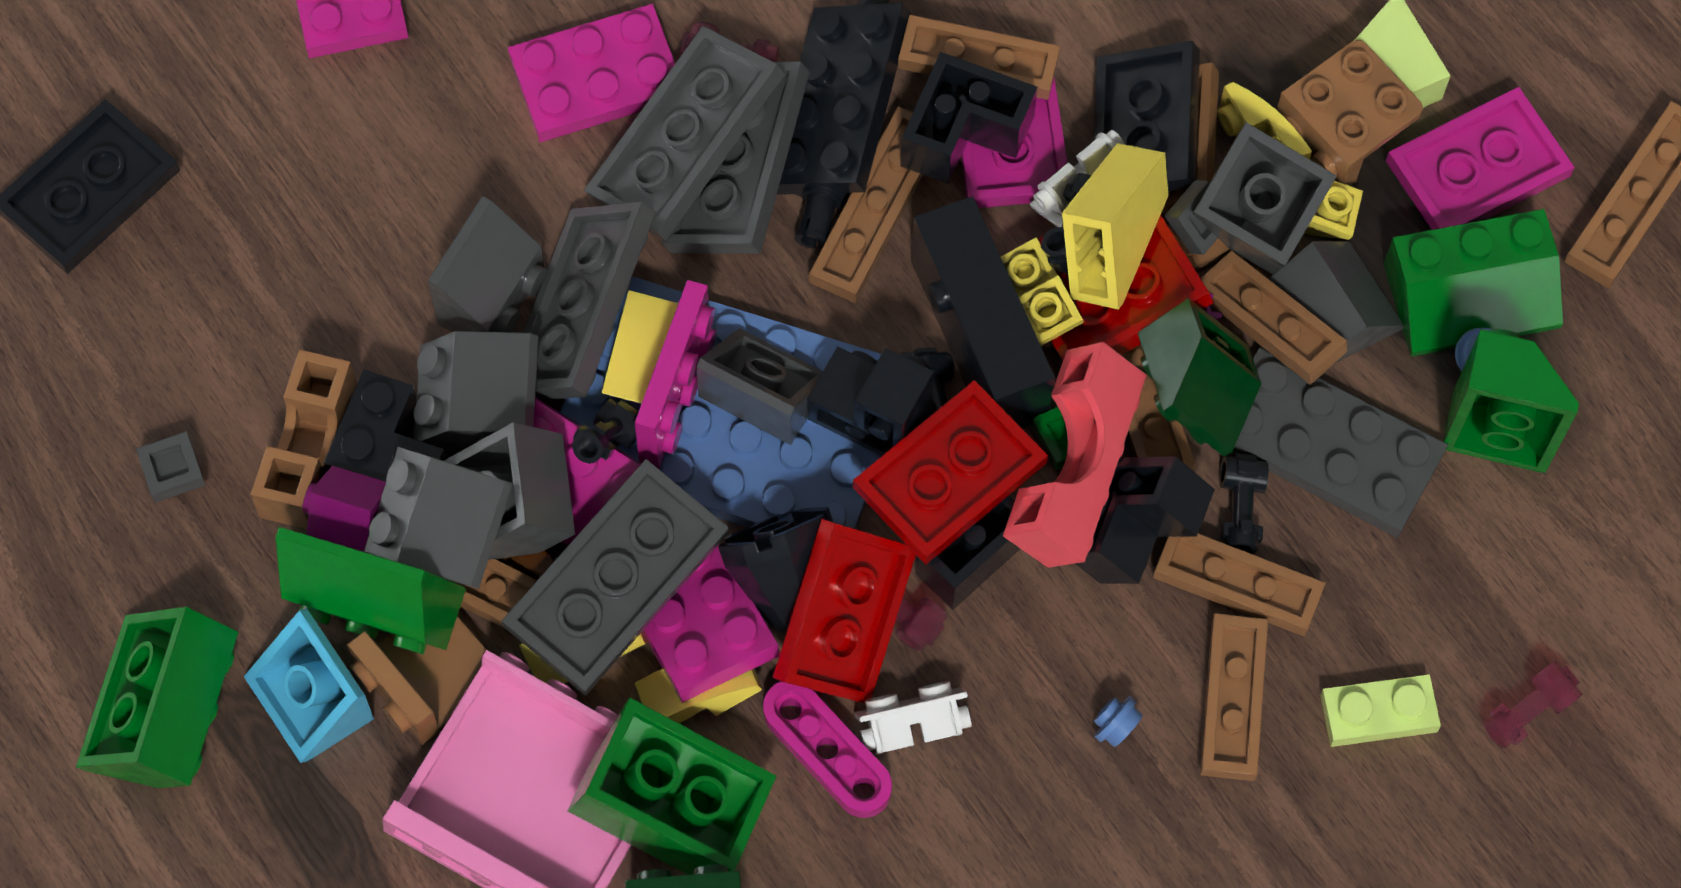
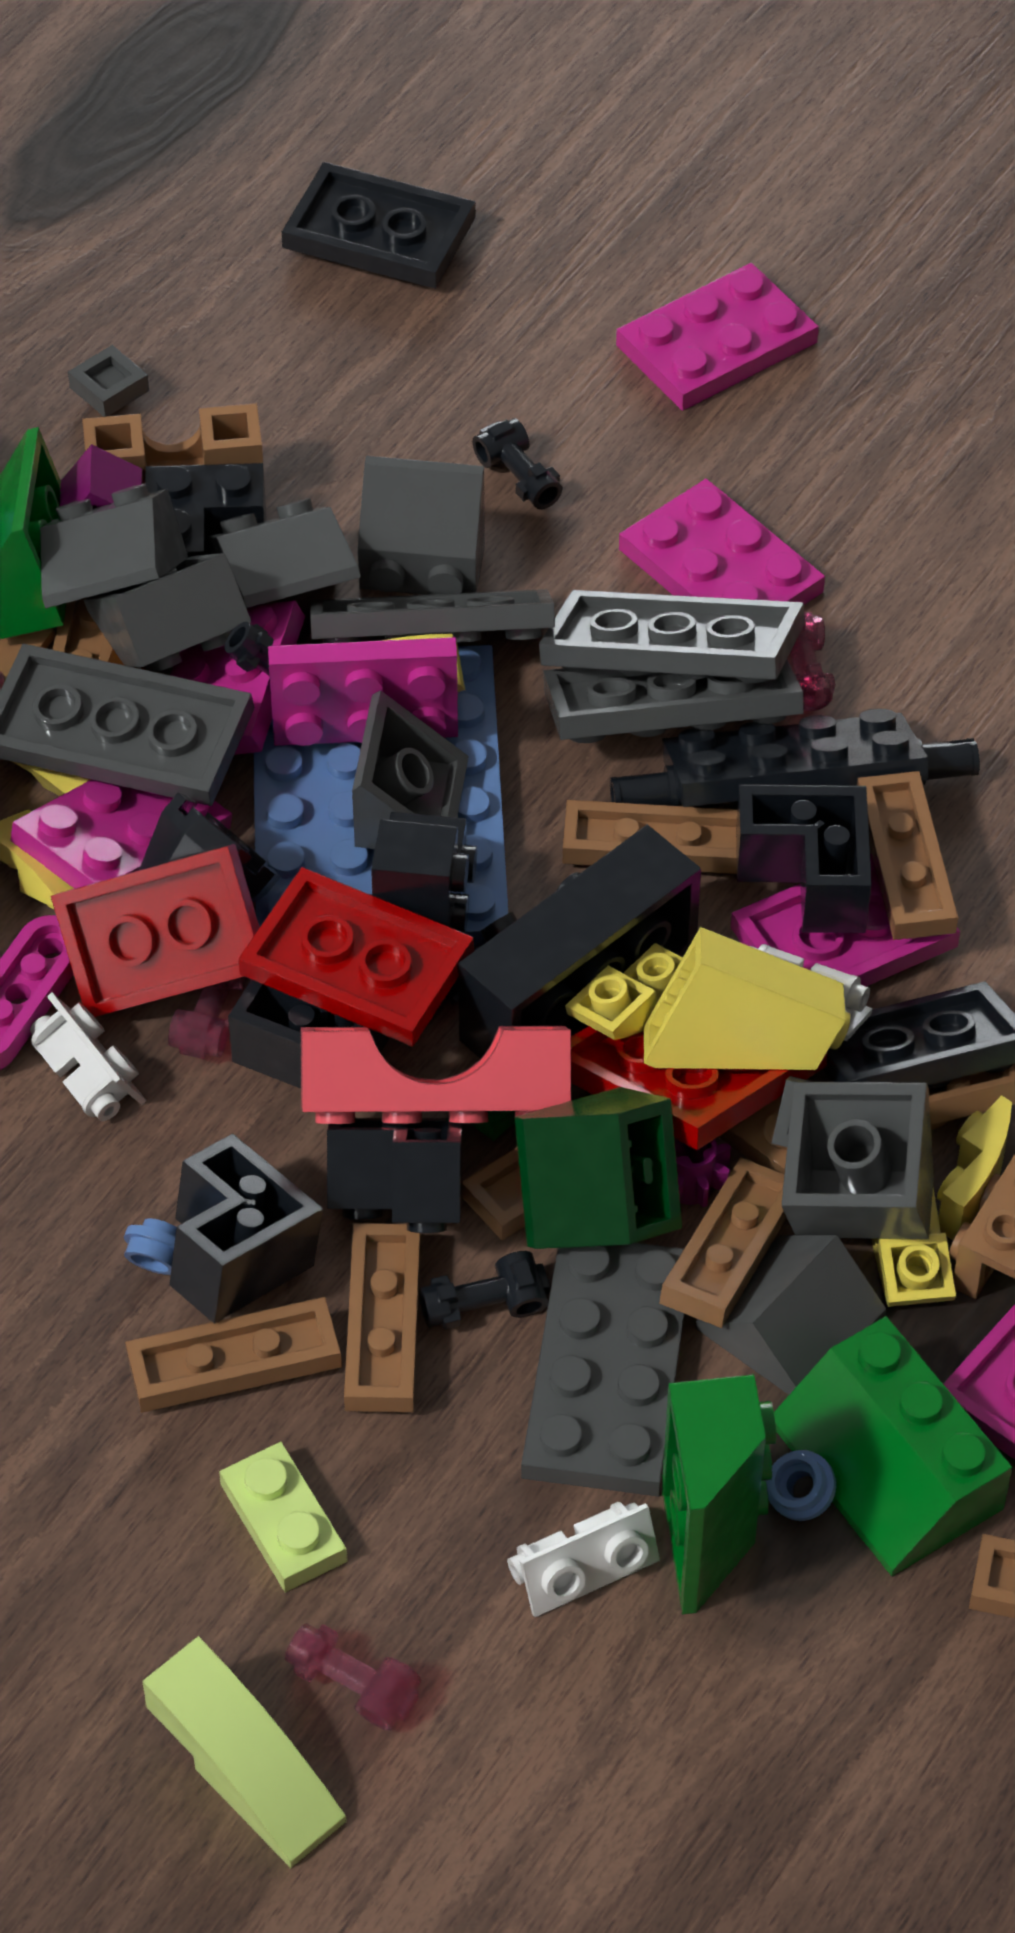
camera: 70 degrees right, 15 degrees down
(394, 183) = (506, 444): none -> black bar
(1143, 641) = (238, 1229): none -> black brick
(1484, 495) = (599, 1554): none -> white hinge
(1574, 800) = (242, 1751): none -> yellowish green slope

